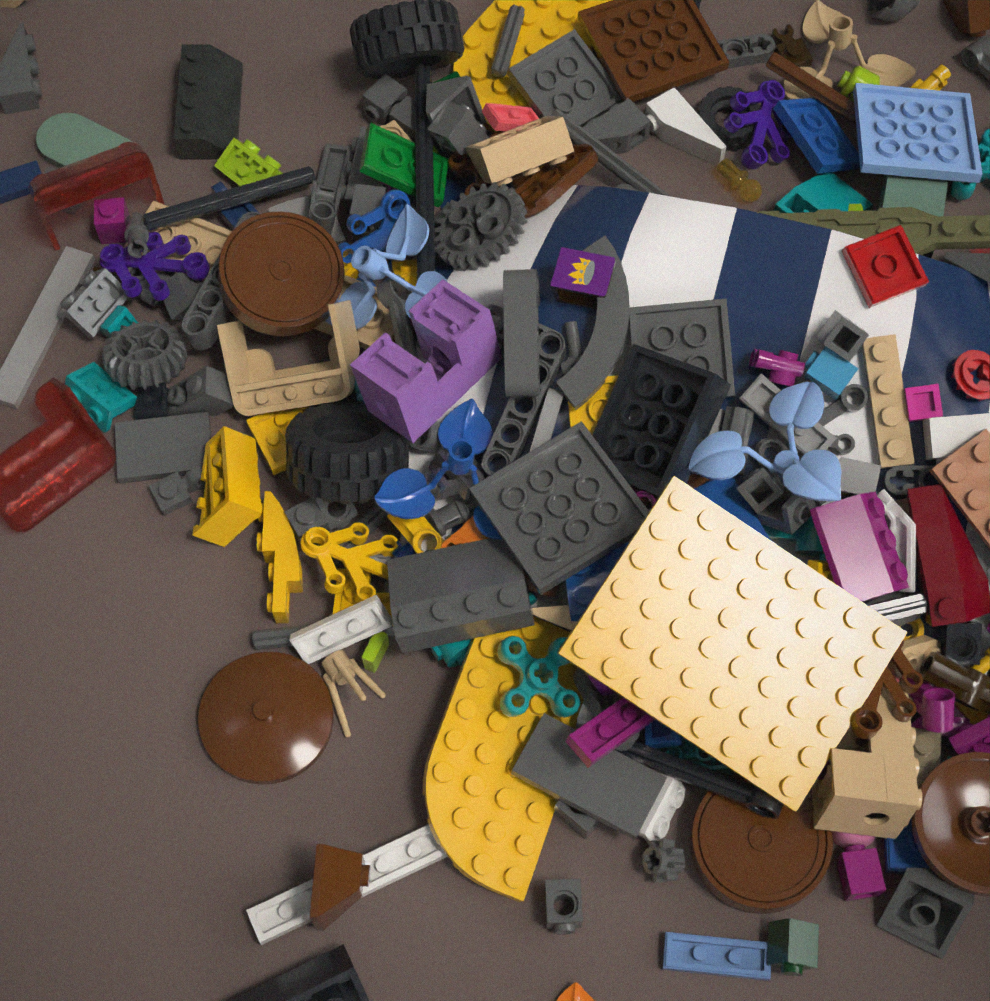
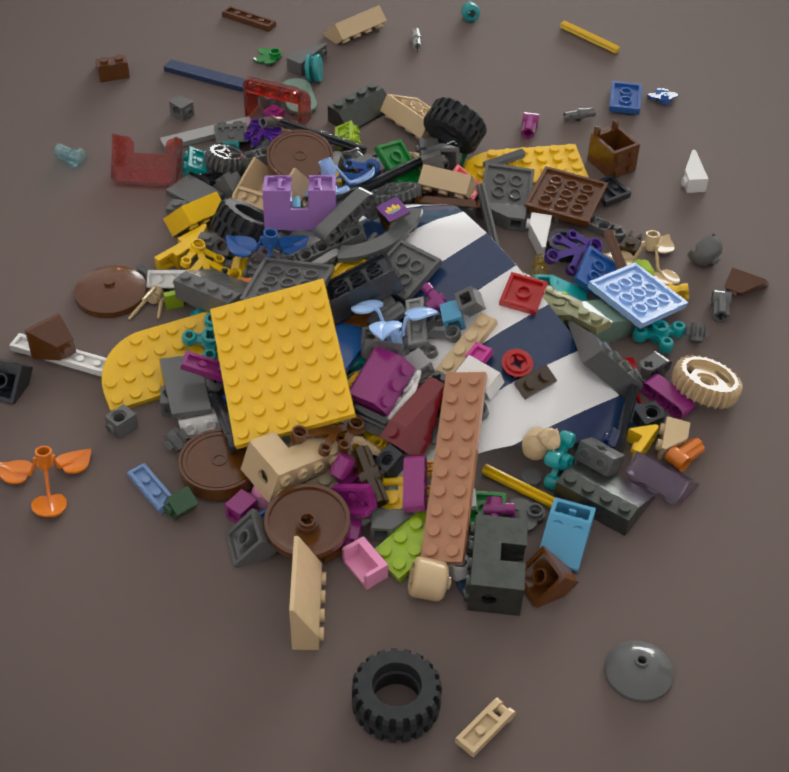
camera: 45 degrees right, 20 degrees down
(59, 82) = (314, 68): none -> teal head
(298, 57) = (407, 113): none -> tan slope

